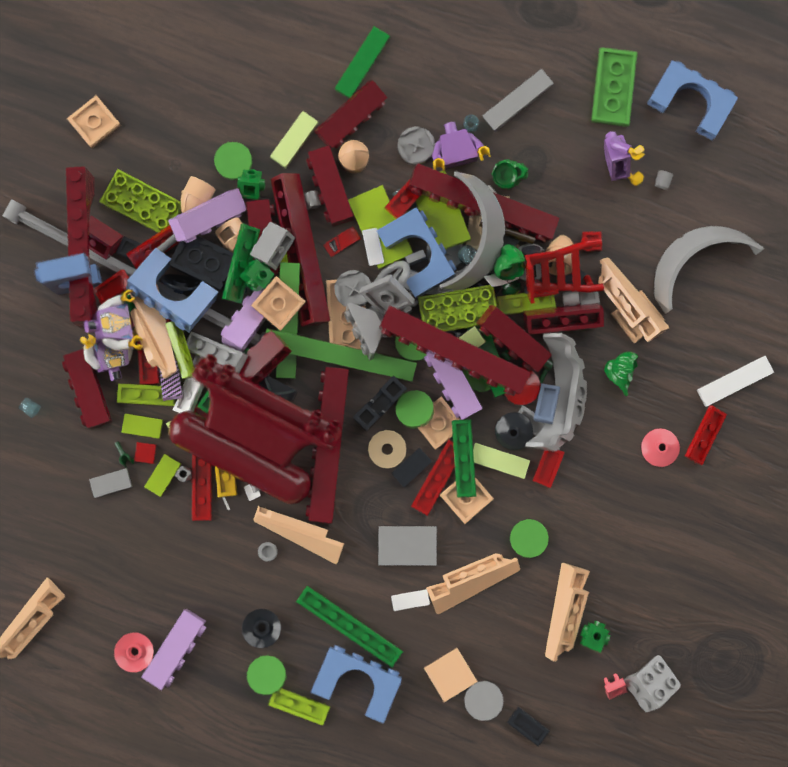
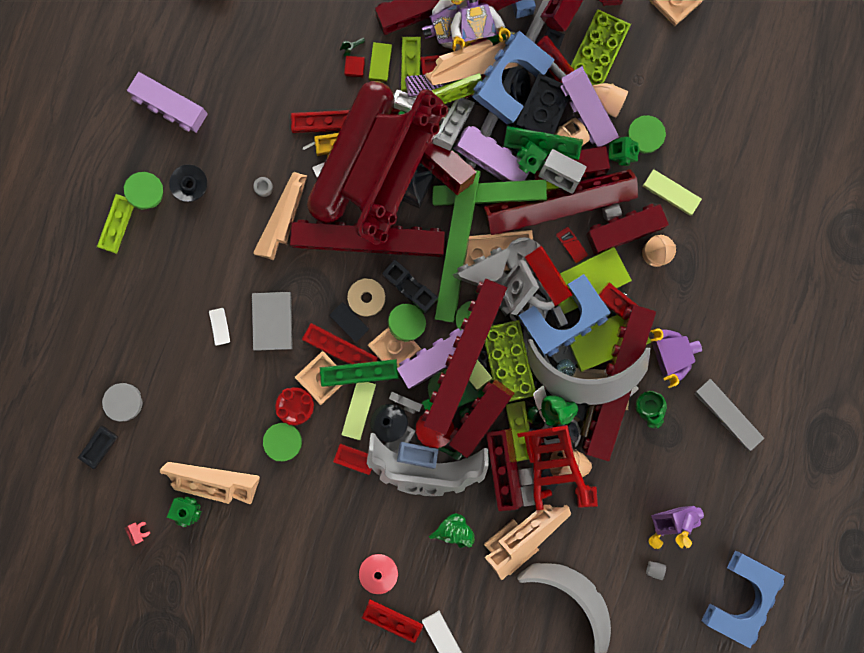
camera: 95 degrees right, 0 degrees up
(110, 483) = (324, 36): light grey tile -> none
(112, 286) = (514, 23): red tile -> none
(124, 655) = (163, 57): coral dish -> none
(162, 475) = (333, 84): lime tile -> none
(189, 474) = (335, 107): light grey hose -> none
(278, 303) = (504, 179): light nougat tile -> none
(349, 626) = (192, 268): green tile -> none
(350, 114) = (702, 246): dark red brick -> none
(362, 62) = (756, 256): green tile -> none
(373, 246) = (572, 272): white sticker -> none
(376, 265) = (548, 275): none -> red tile
(385, 682) = (140, 302): medium blue arch -> none
(416, 145) = (674, 313): light grey tile -> none
(450, 674) = (147, 368): light nougat tile -> none
(470, 581) = (238, 384): light nougat wedge -> none
(471, 118) = (705, 365): clear light blue hose -> none
(494, 525) = (294, 406): none -> red dish
(497, 409) = (410, 406): none -> light grey plate
(614, 87) = (750, 515): bright green tile -> none
(653, 684) = (138, 572): light grey bracket -> none

